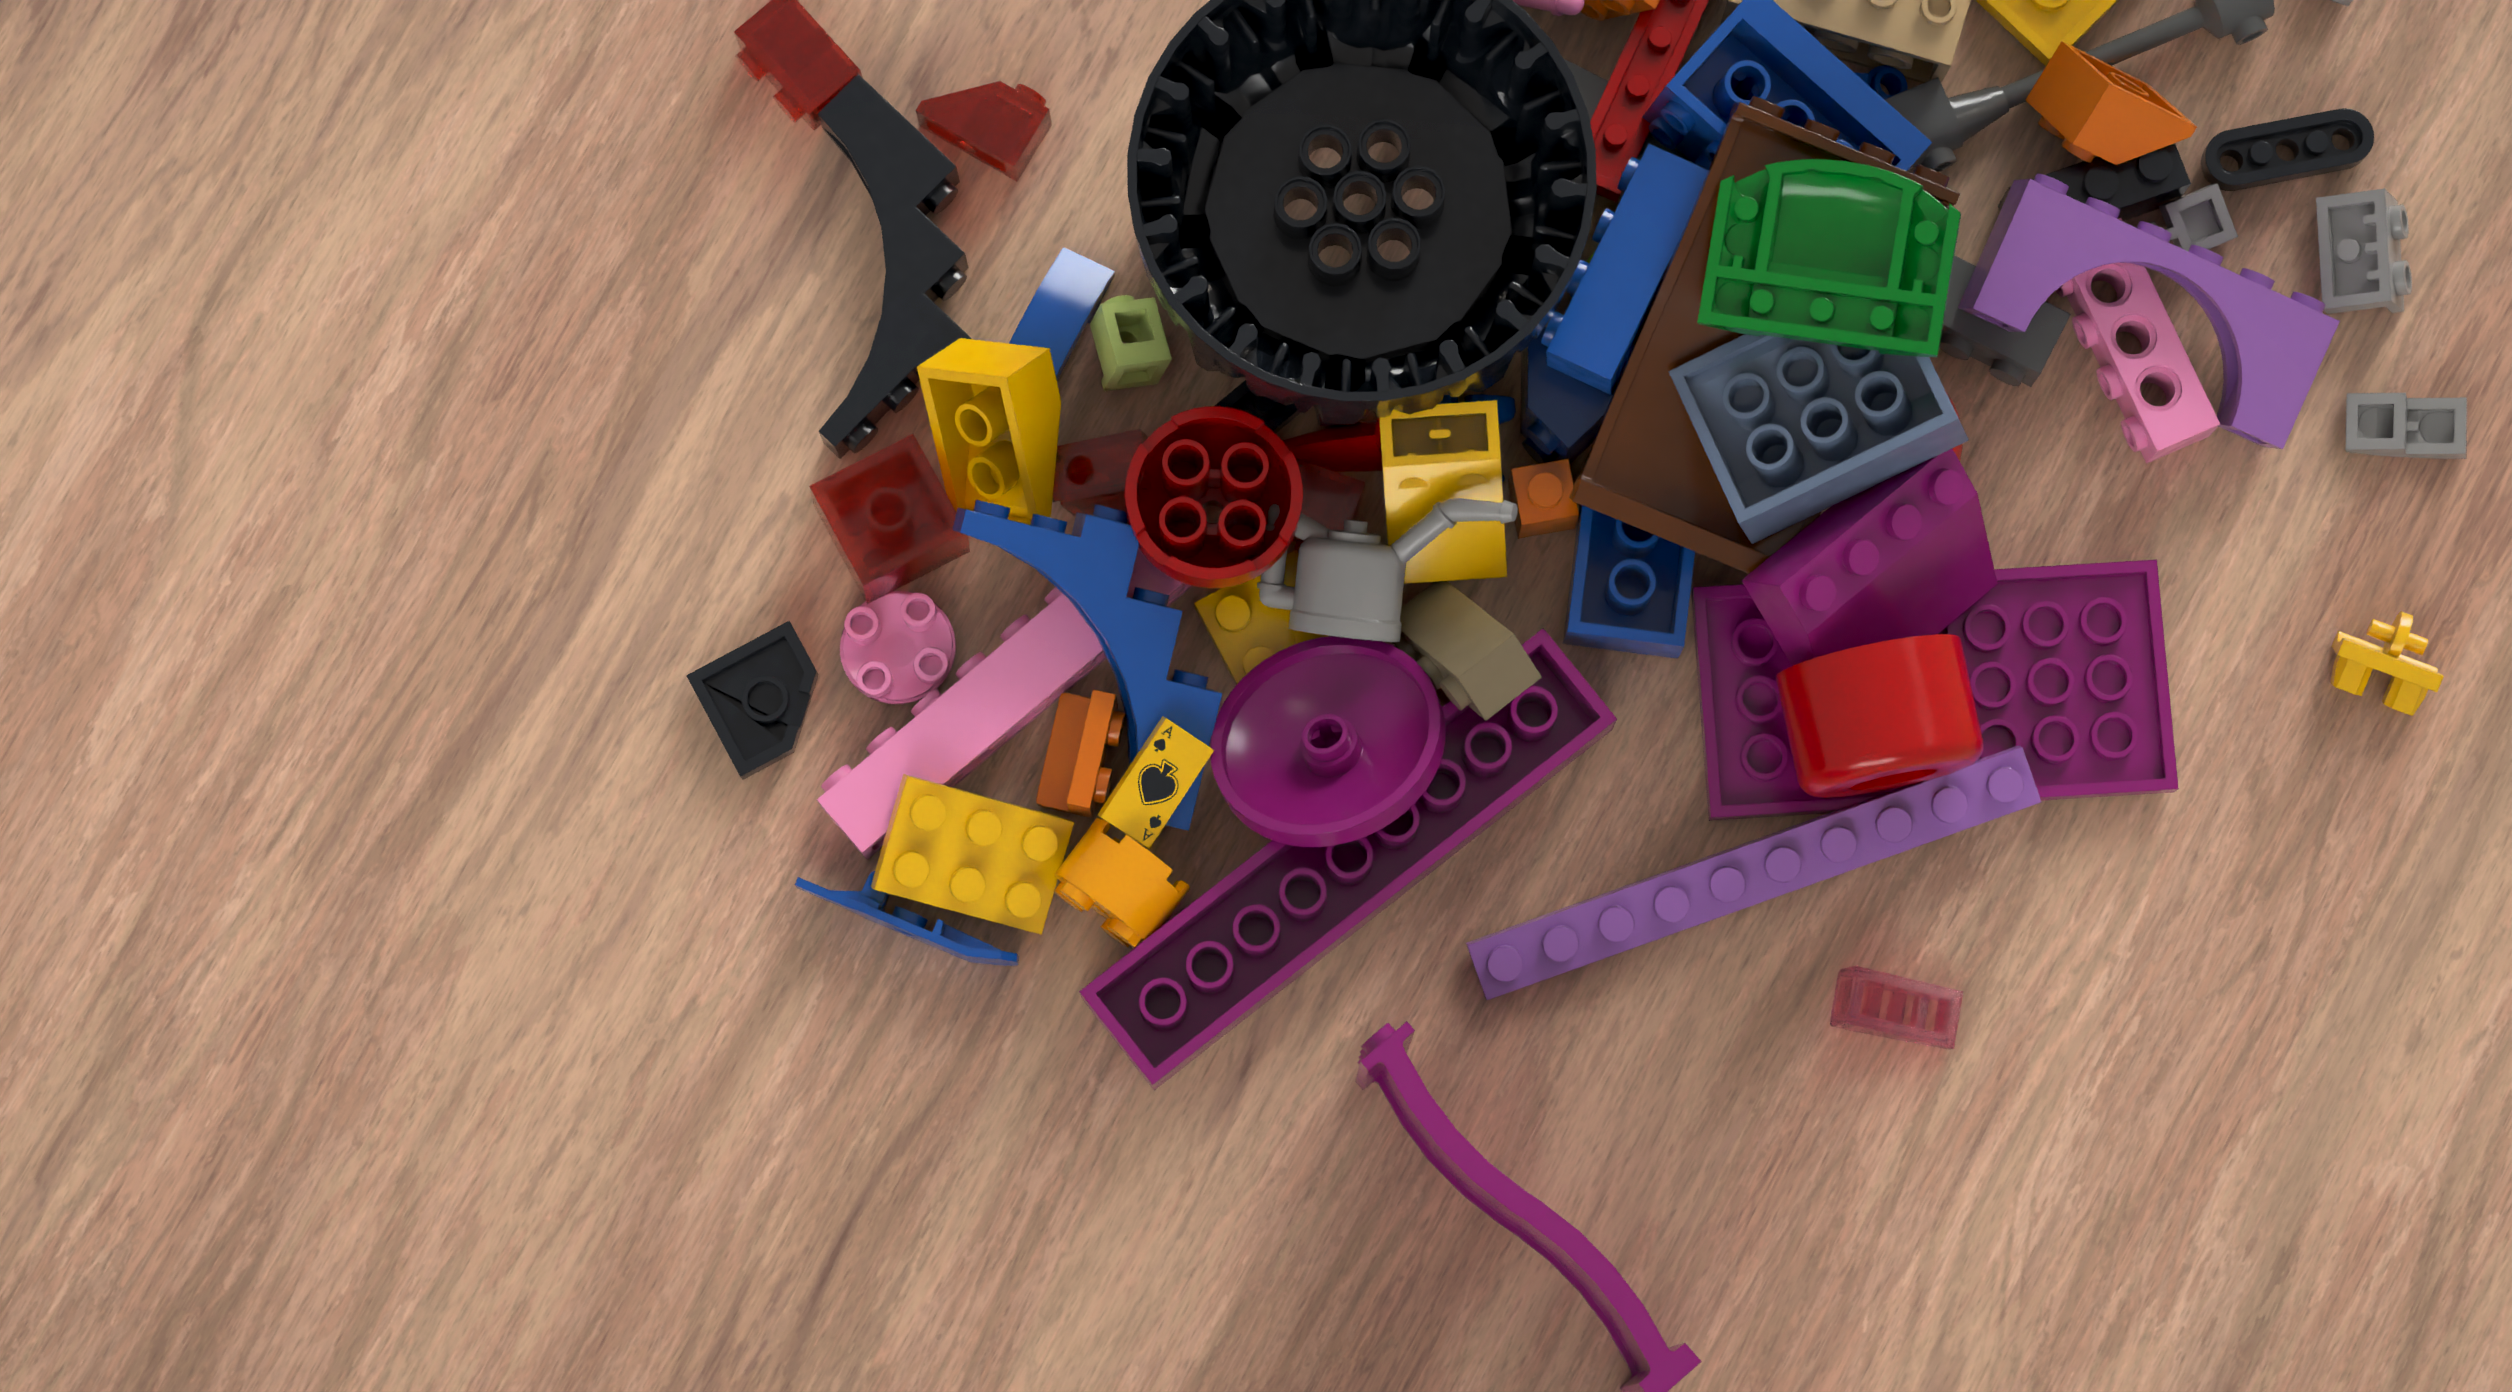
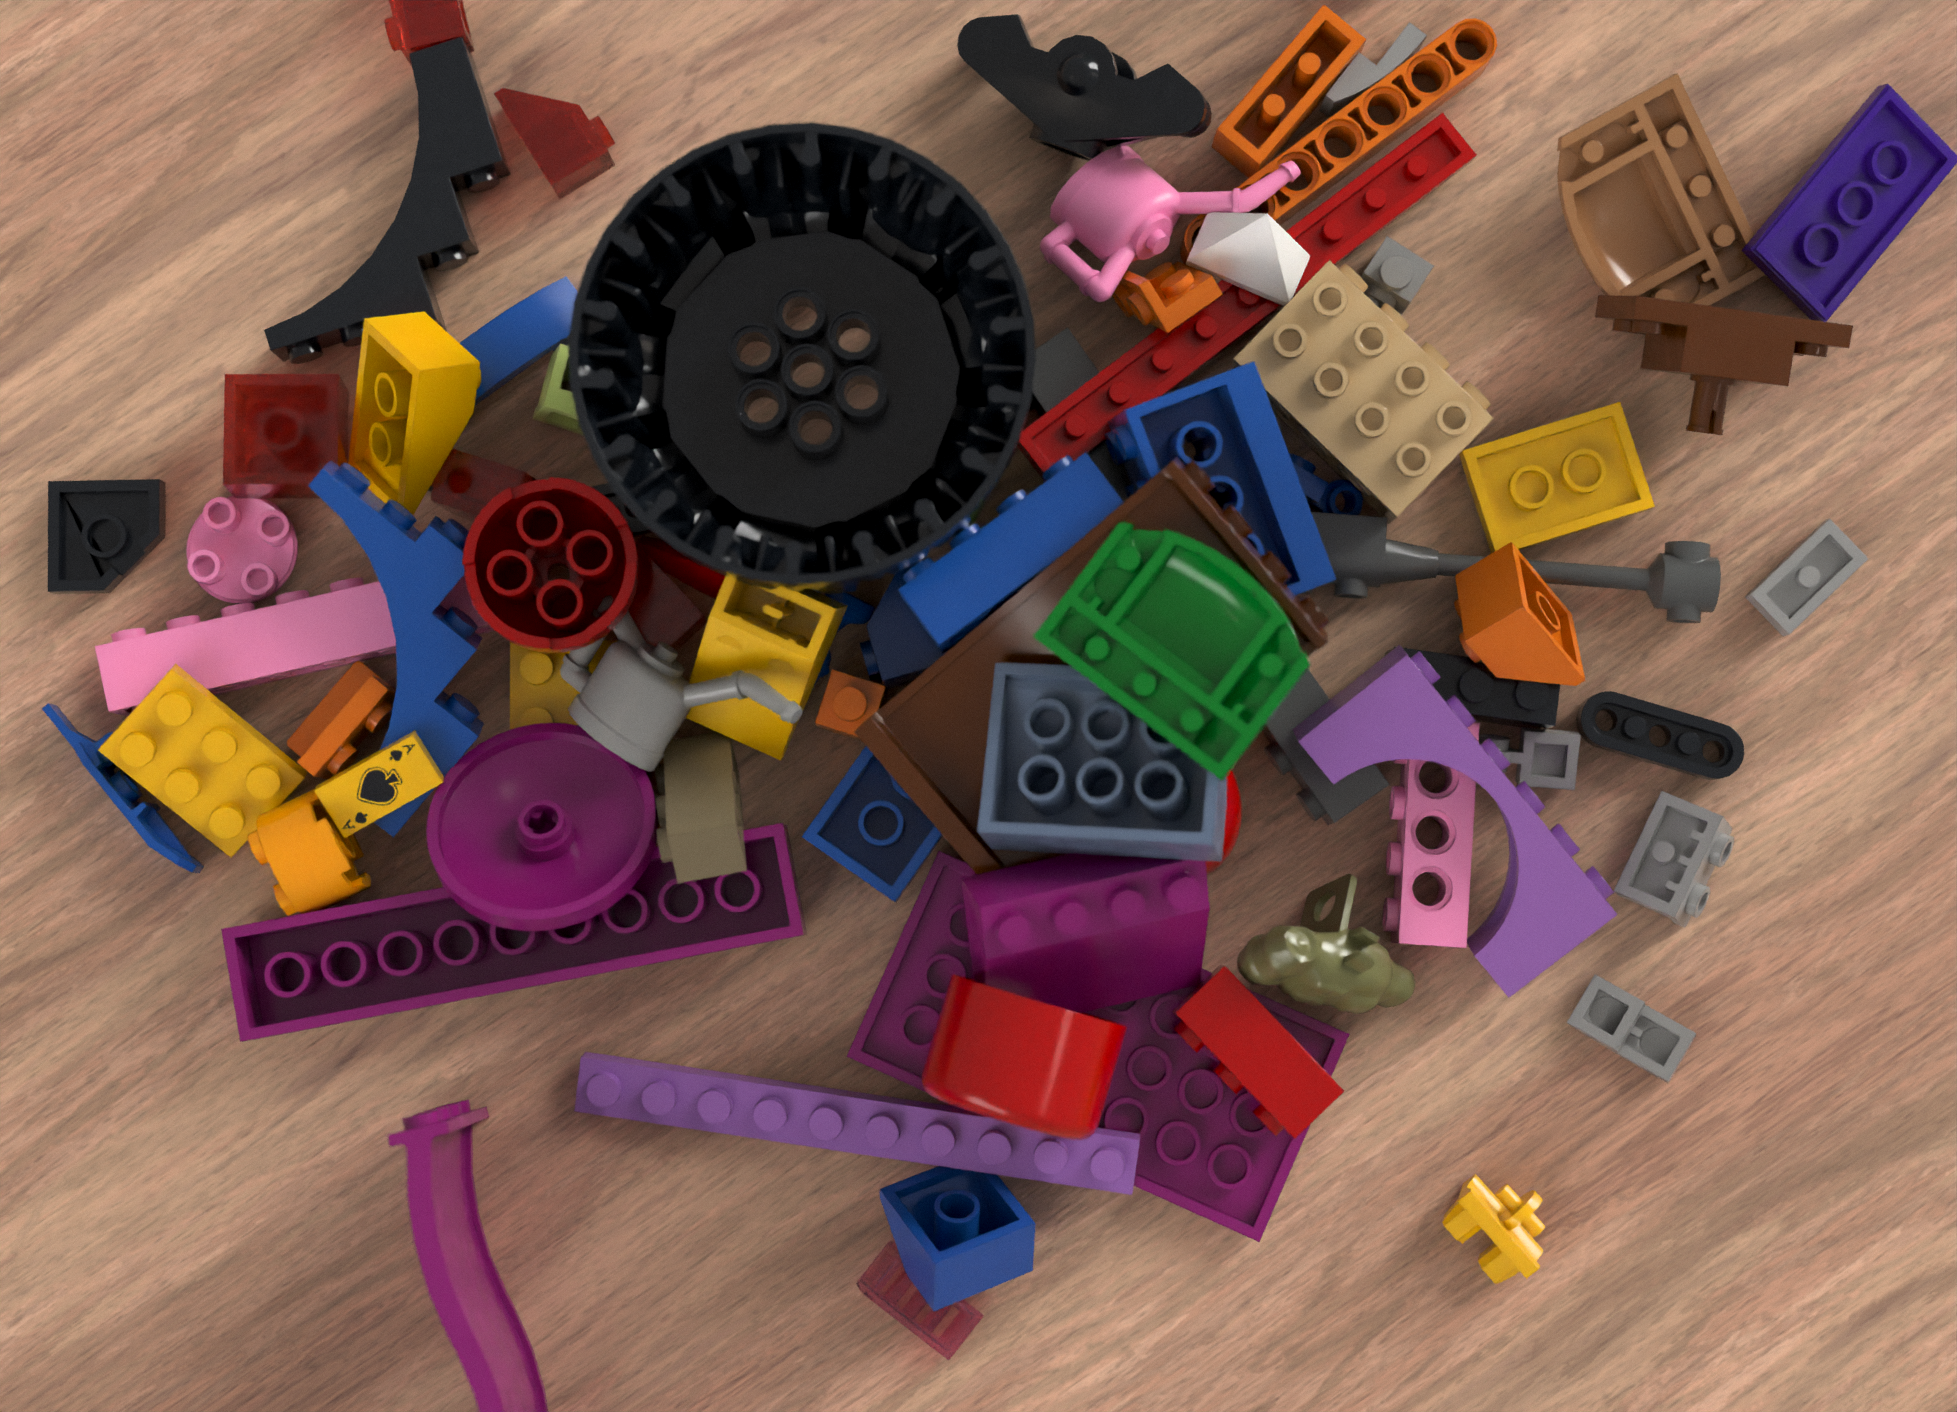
camera: 25 degrees right, 5 degrees up
(1902, 919) = (958, 1232): none -> blue slope
(2083, 615) = (1255, 1053): none -> red brick
(2103, 498) = (1326, 960): none -> olive piece

